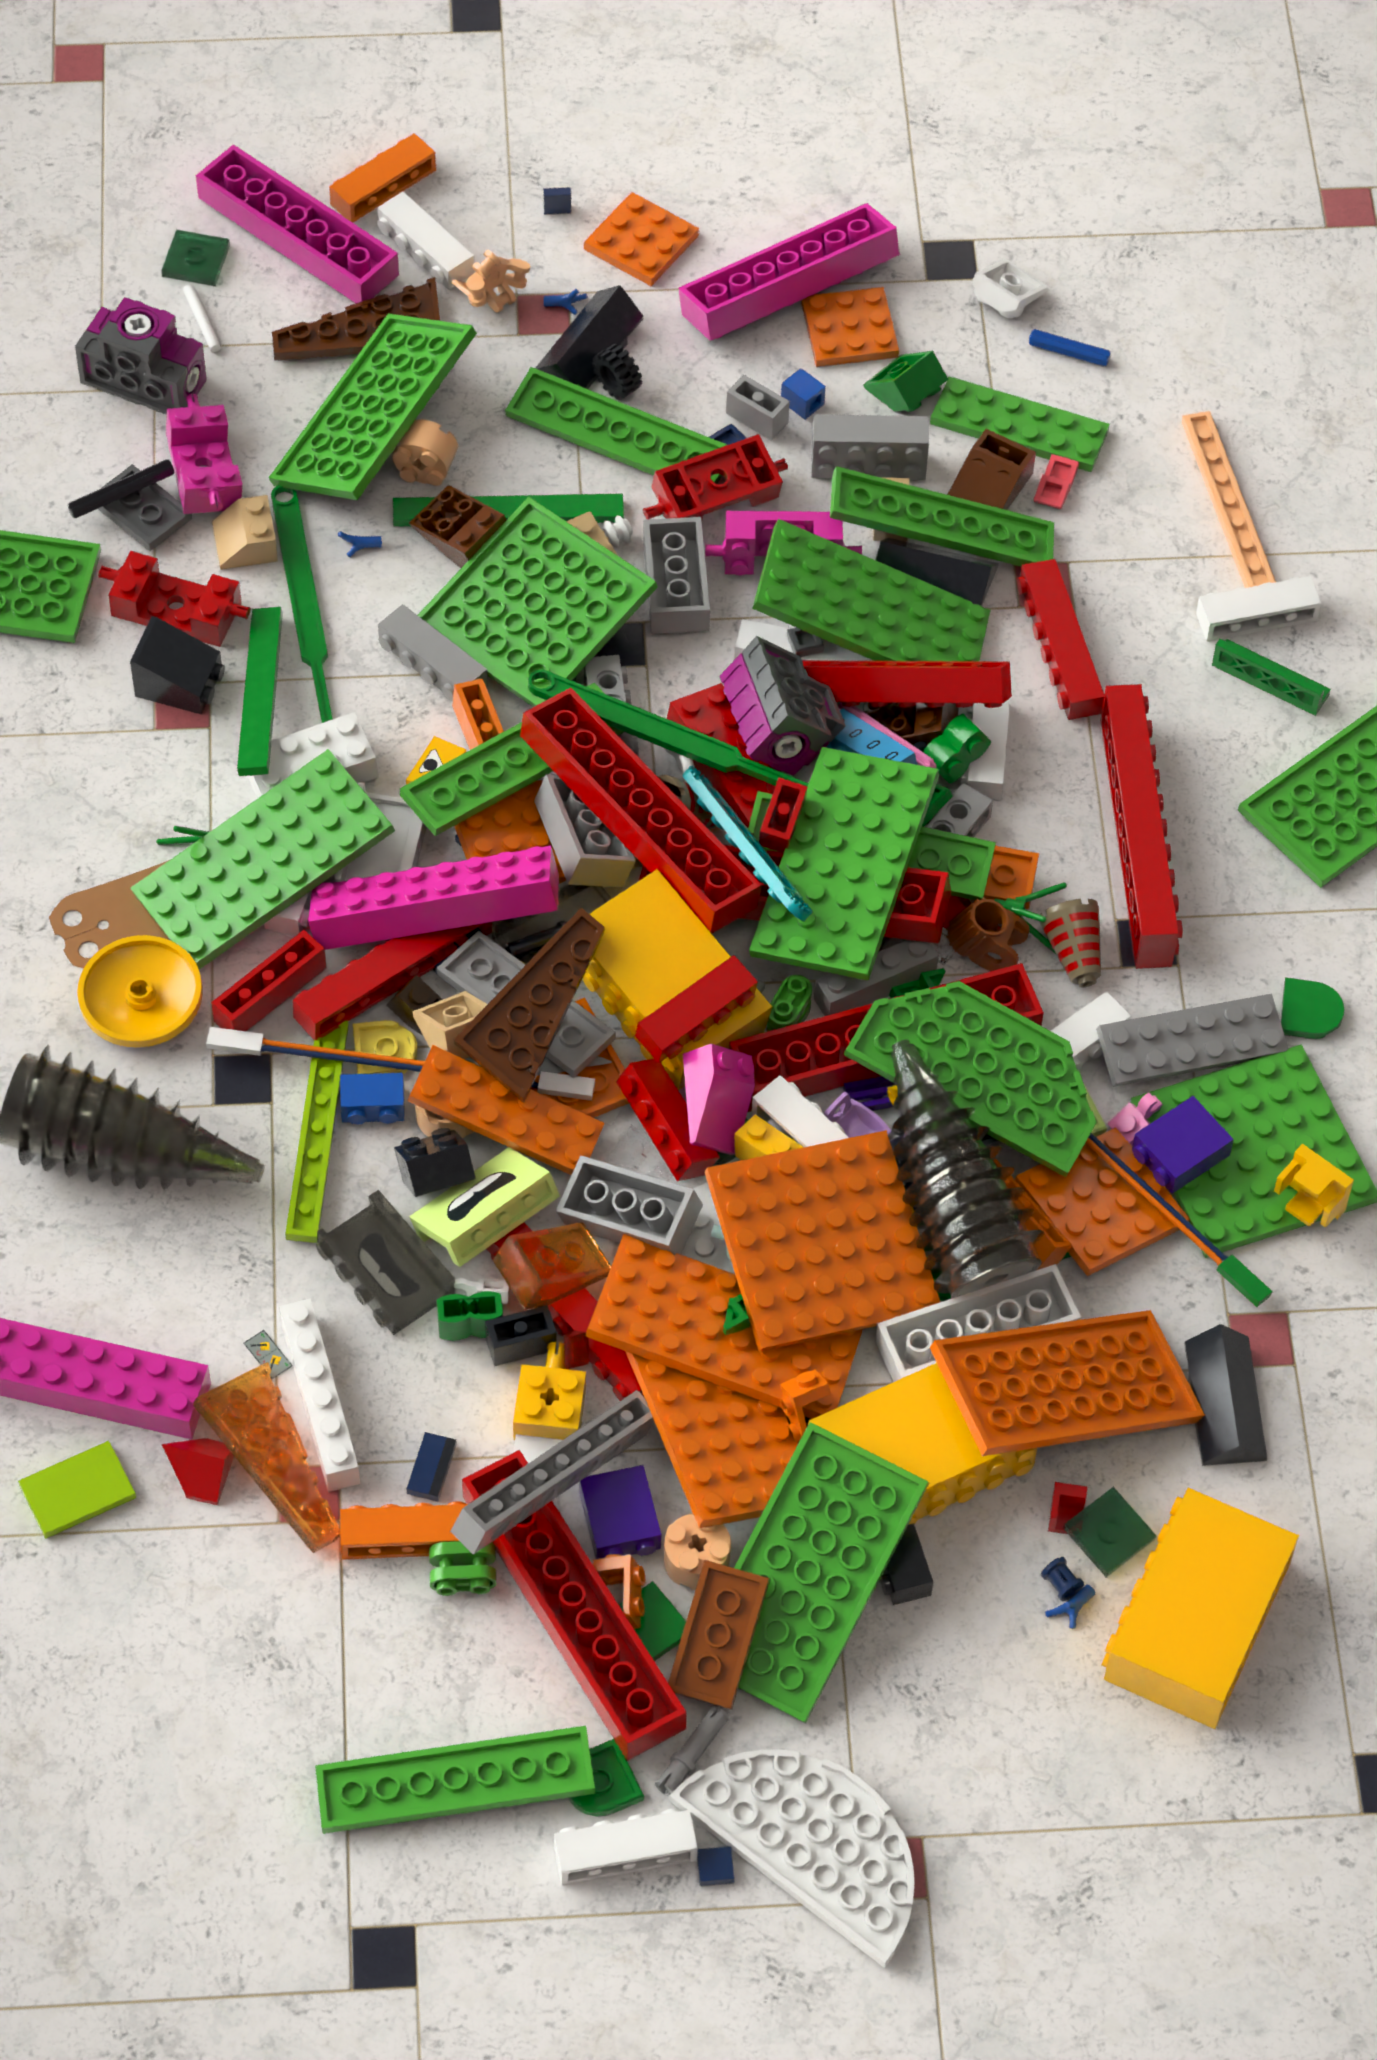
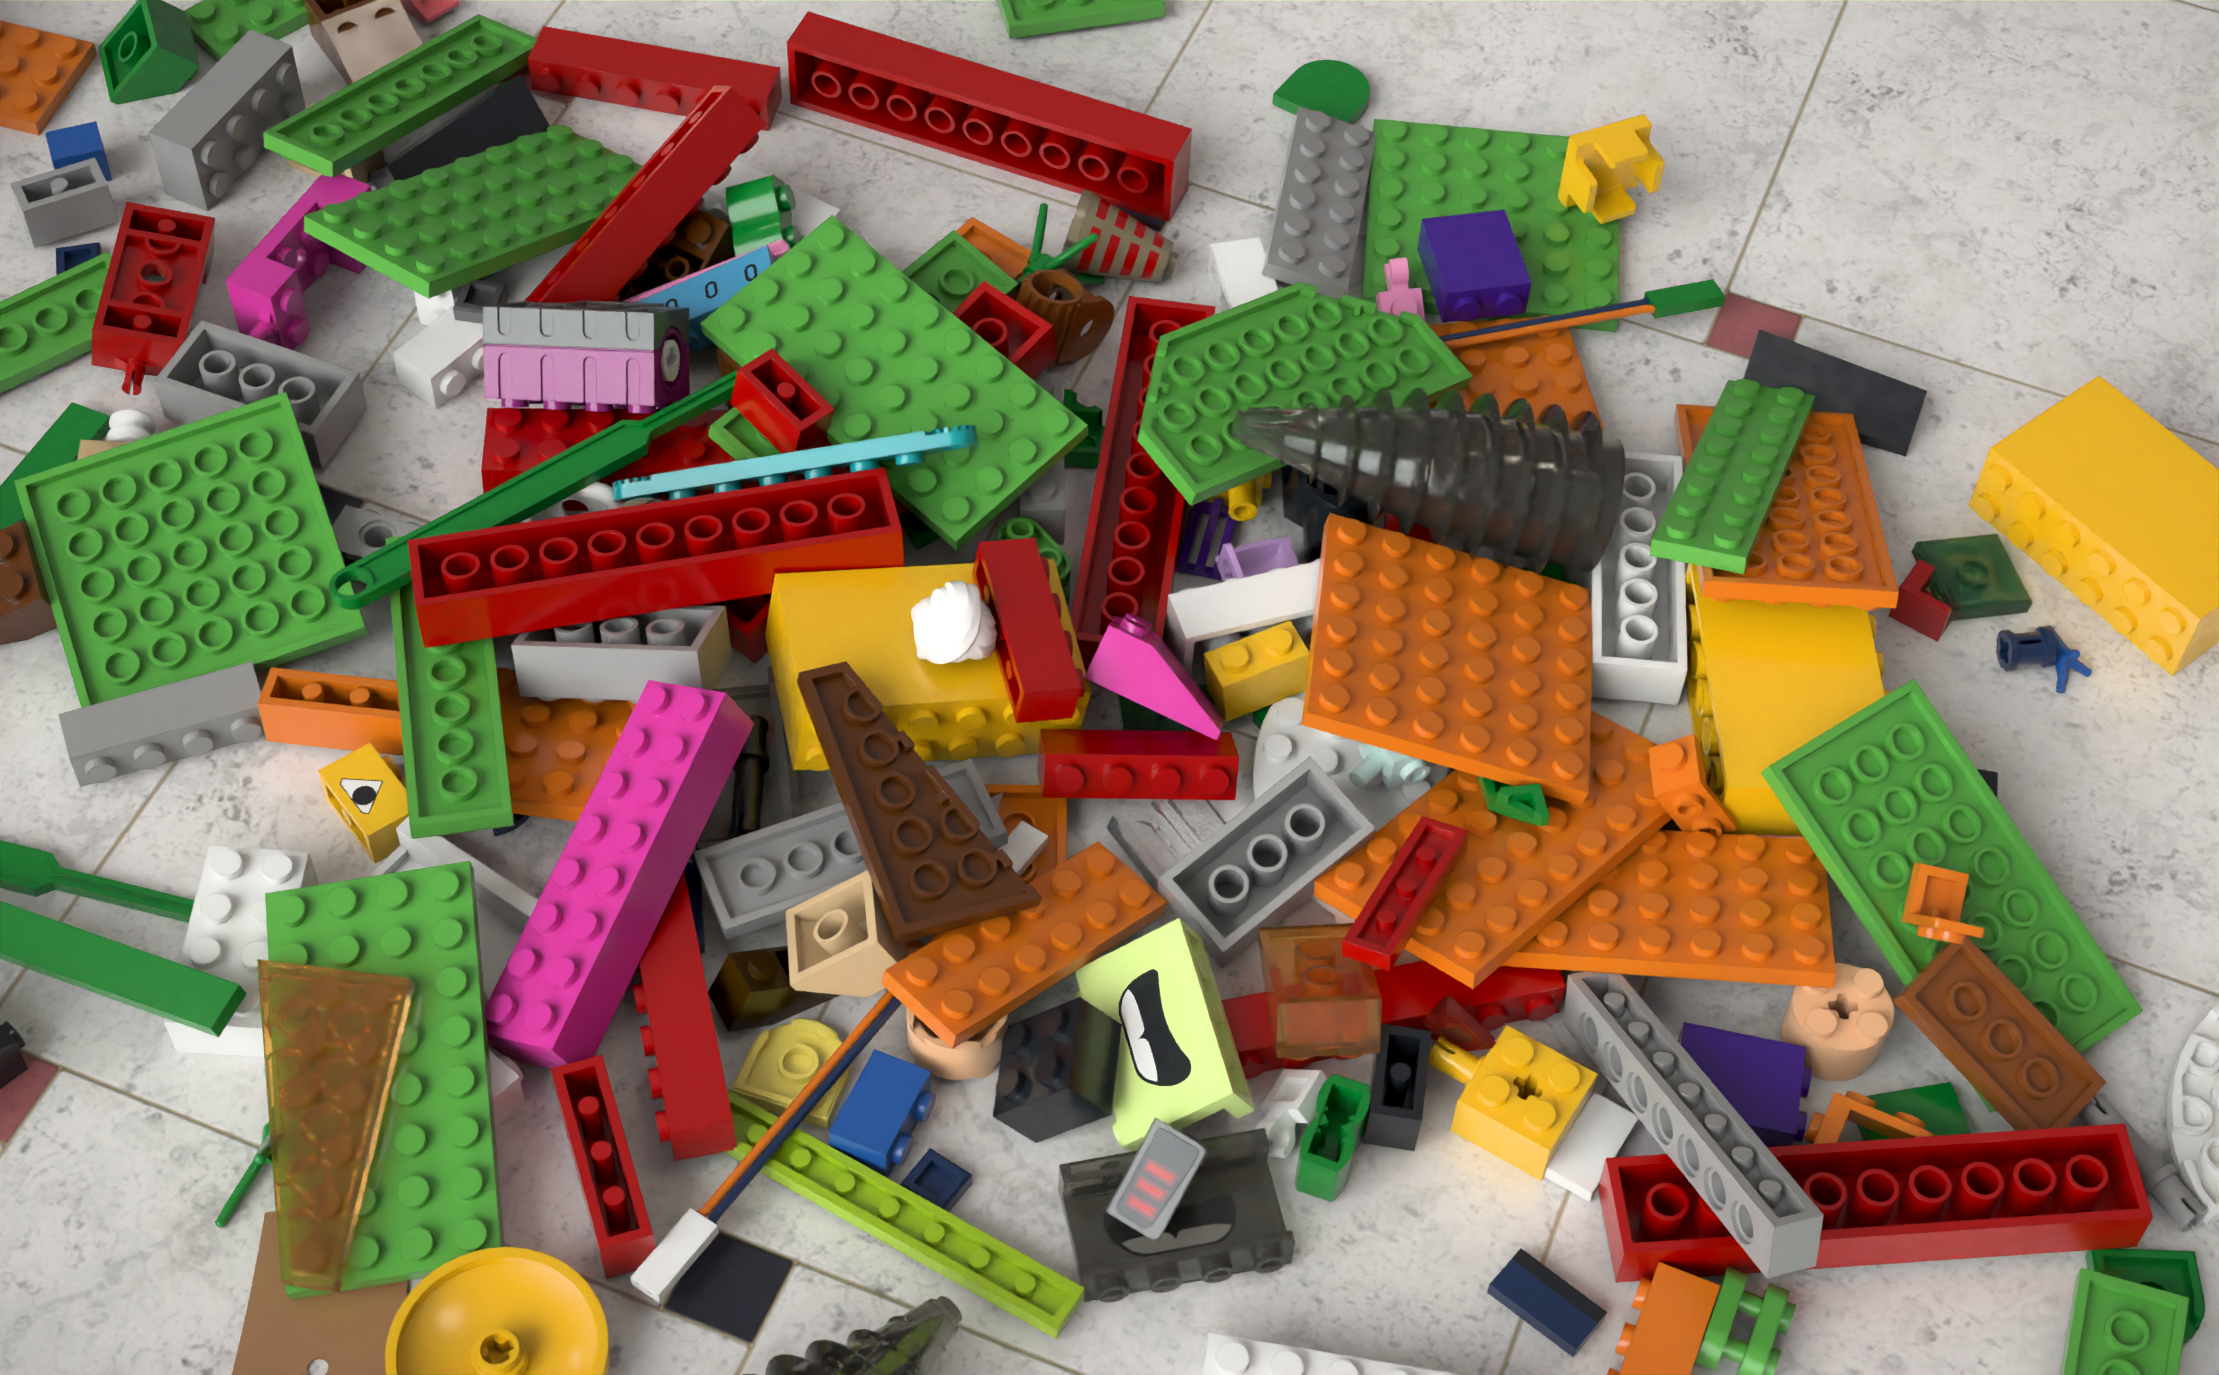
camera: 65 degrees left, 5 degrees down
(241, 834) = (328, 1078): none -> clear orange wing
(348, 1145) = (938, 1180): none -> dark blue tile
(392, 1237) = (1157, 1179): none -> slope
(623, 1272) = (1405, 893): none -> red plate
(671, 971) = (953, 625): none -> white hair
(771, 1557) = (1936, 904): none -> orange bracket
(1071, 1345) = (1733, 476): none -> bright green plate

